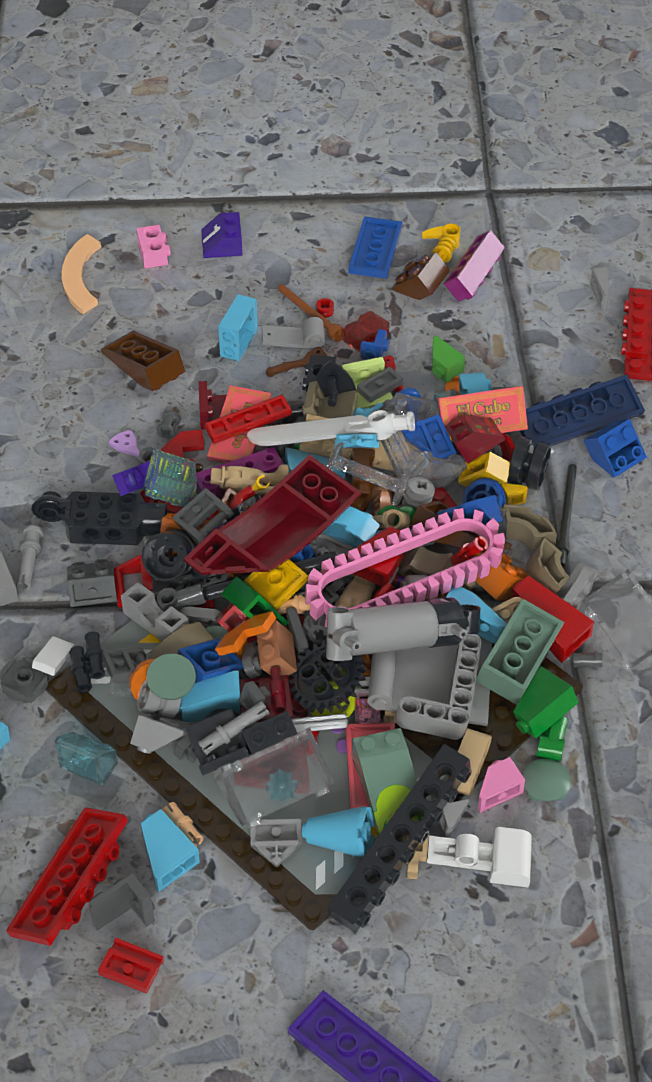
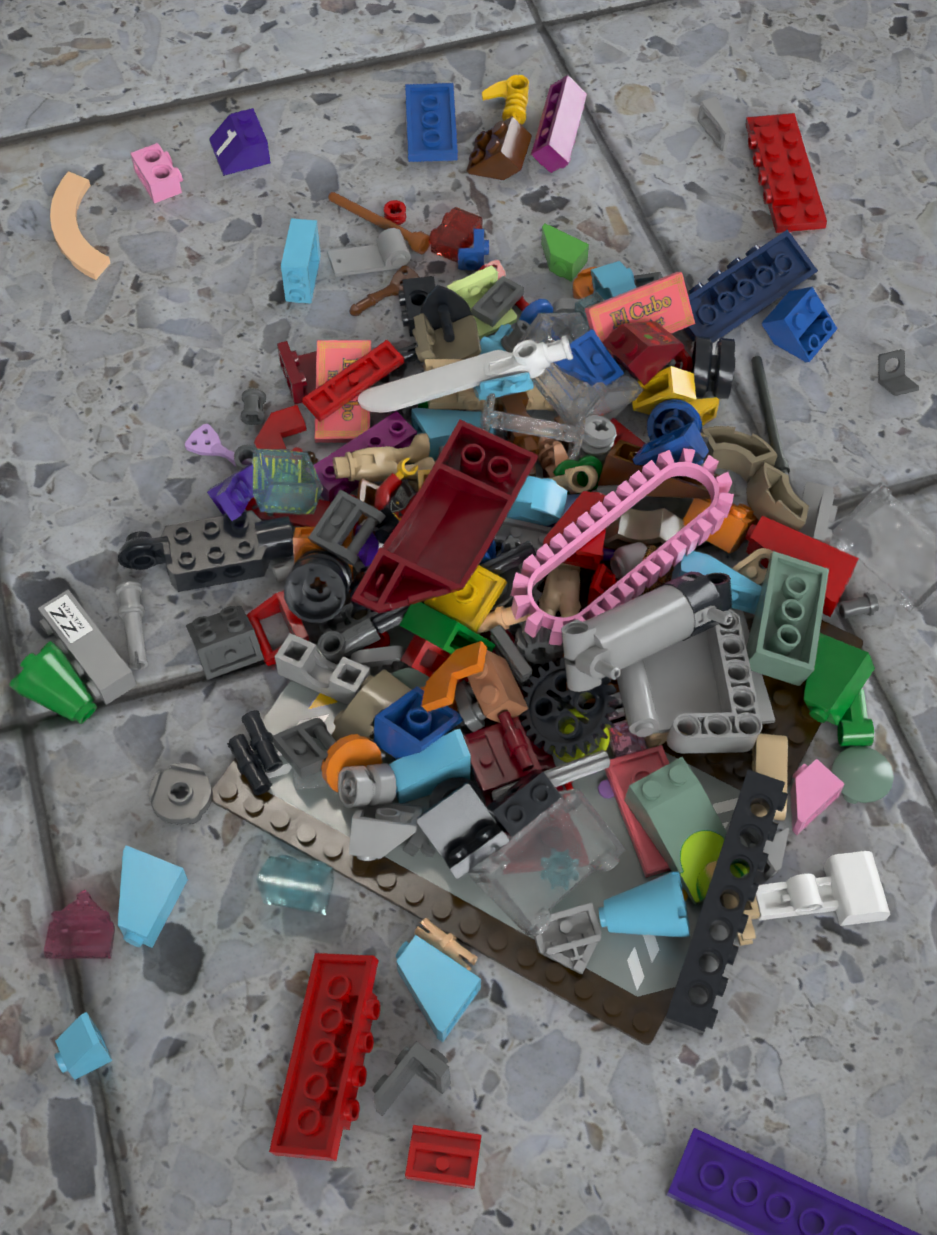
camera: 15 degrees left, 10 degrees up
(52, 656) = (208, 754): white tile -> none
(145, 360) = (195, 325): reddish brown slope -> none
(171, 676) = (378, 757): sand green piece -> none
(232, 728) = (478, 808): light grey pin -> none
(252, 695) = (490, 761): dark grey tile -> none
(469, 550) = (700, 497): red pin -> none

